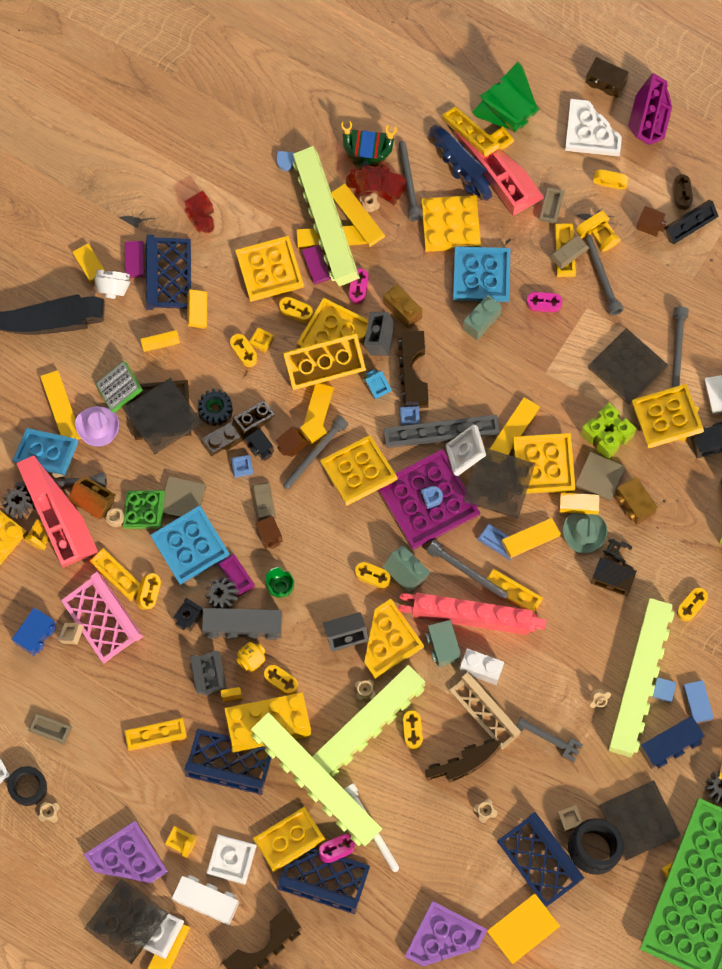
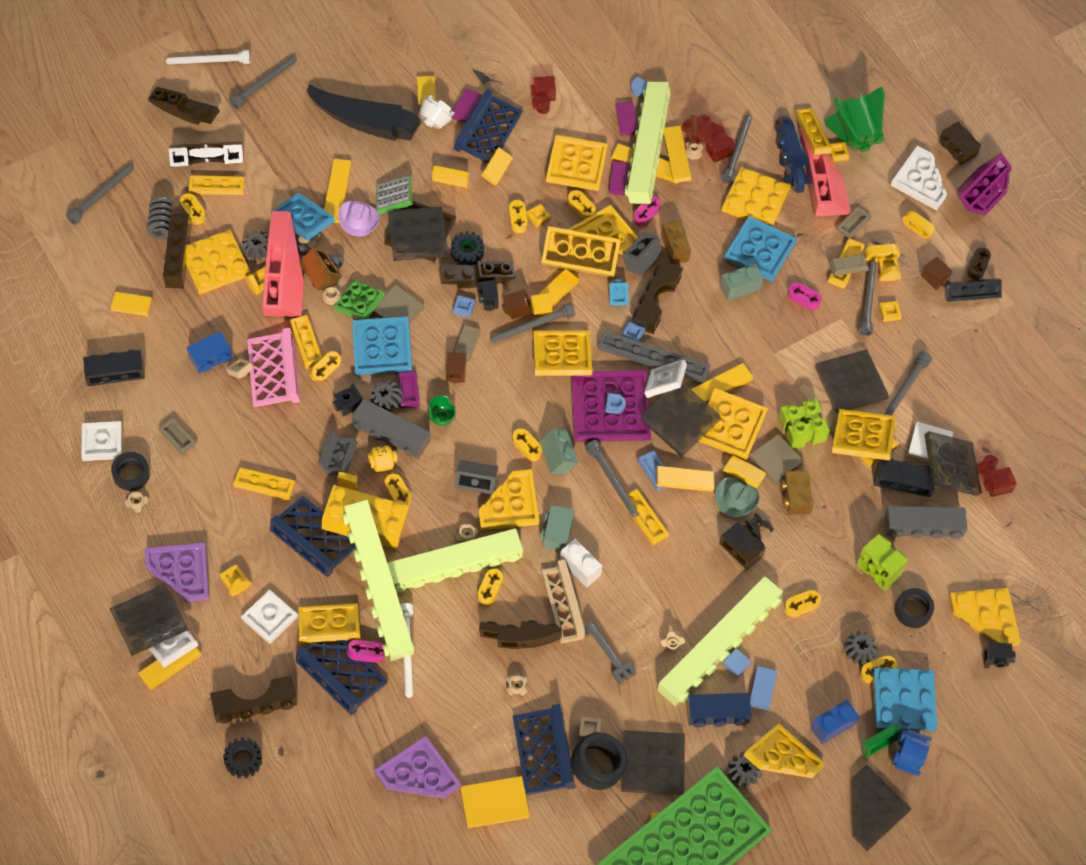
camera: 20 degrees right, 10 degrees down
(206, 899) = (227, 637): white brick -> none
(290, 199) = (626, 118): none -> magenta tile
(367, 147) = (716, 104): torso -> none
(472, 613) = (597, 515): coral hinge -> none
(627, 279) = (890, 311): none -> yellow tile

